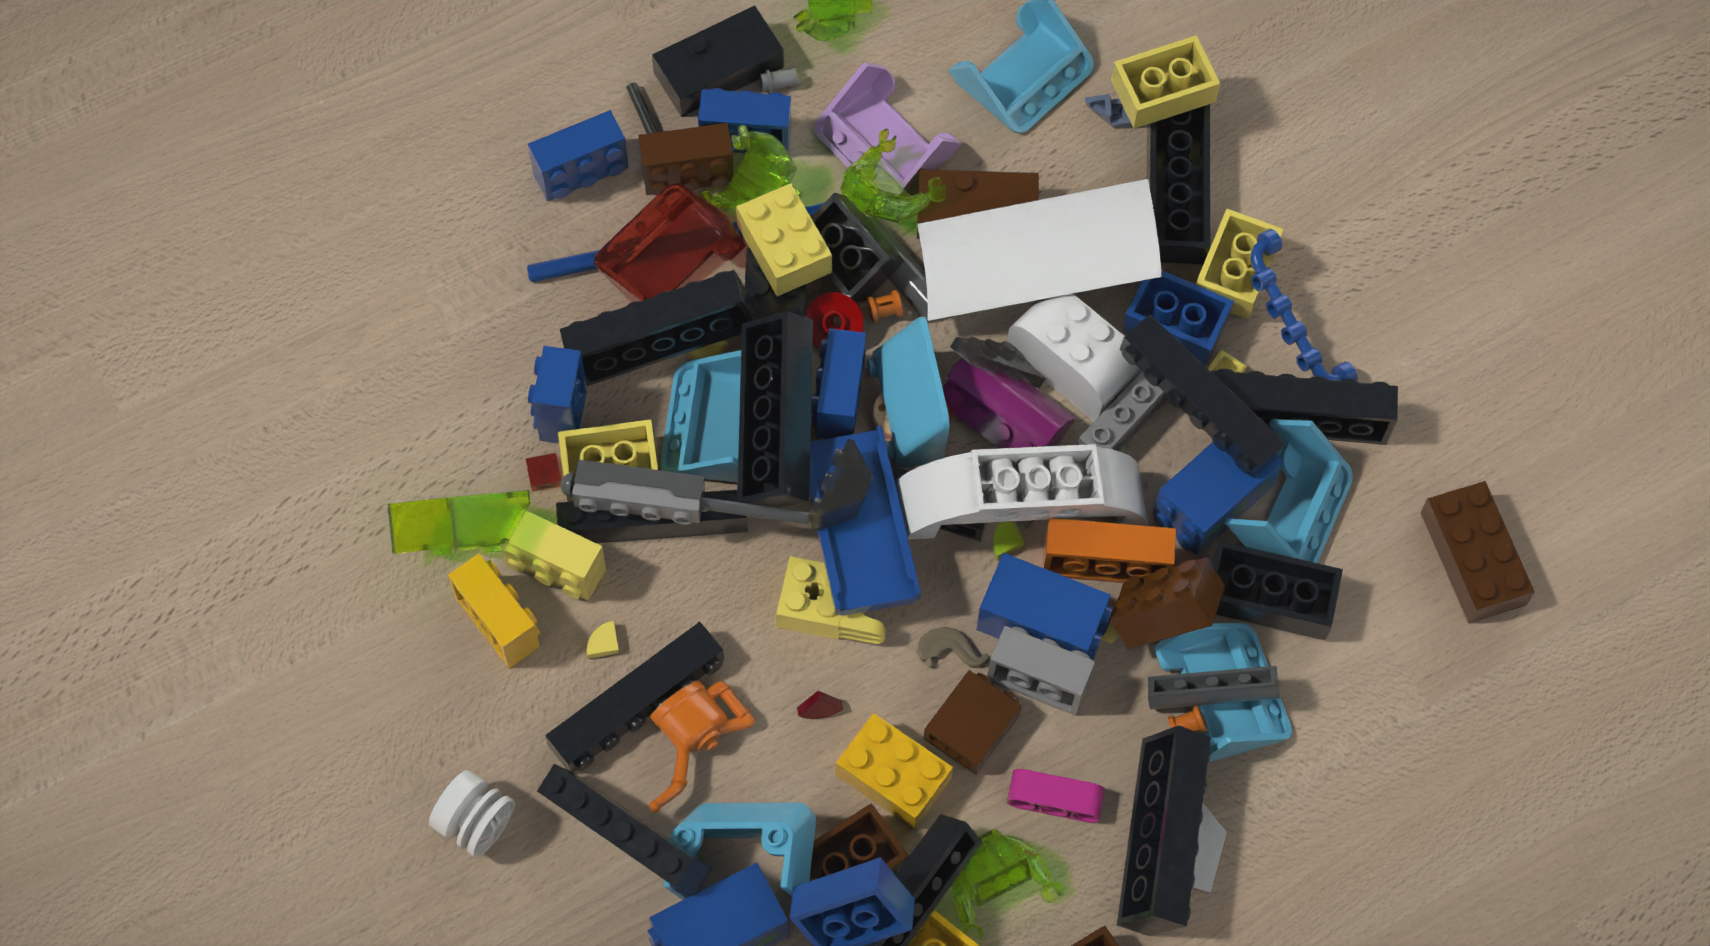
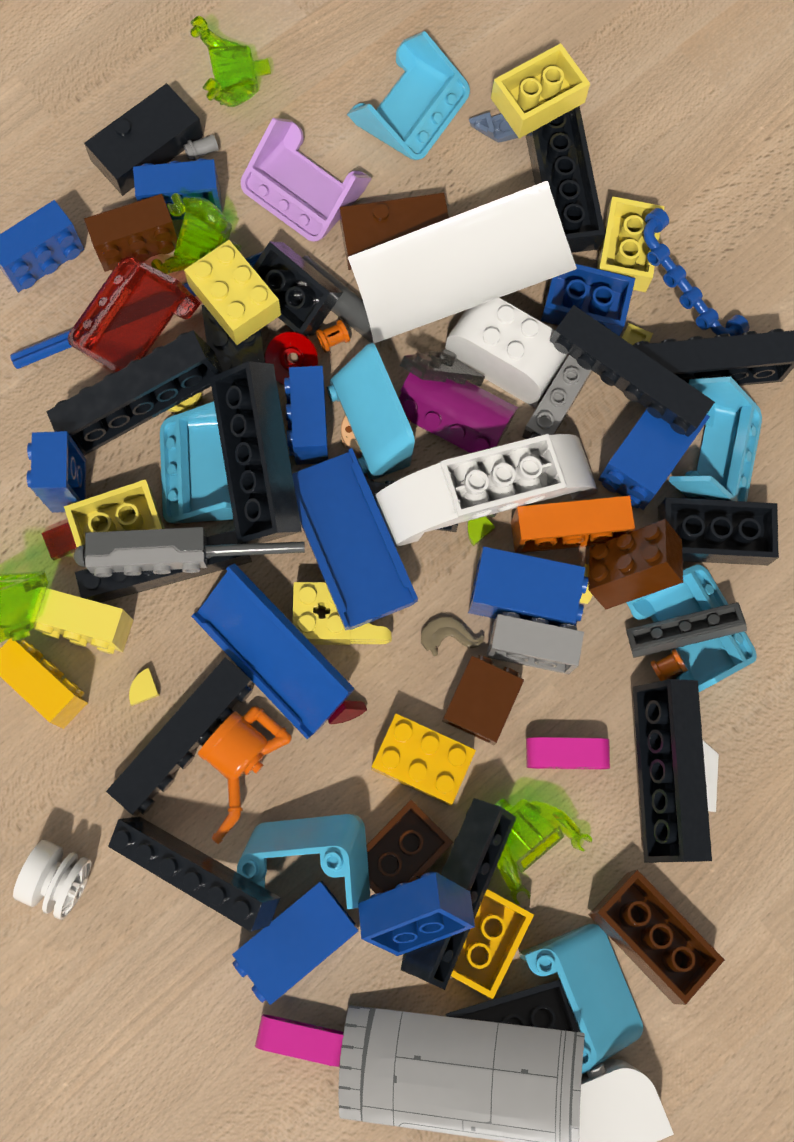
camera: 15 degrees left, 10 degrees up
(641, 108) = (85, 193): pearl dark grey bar -> none
(752, 626) = (272, 652): none -> blue ladder
(843, 489) = (331, 514): clear smoke slope -> none
(878, 193) = (307, 234): clear neon green torso -> none

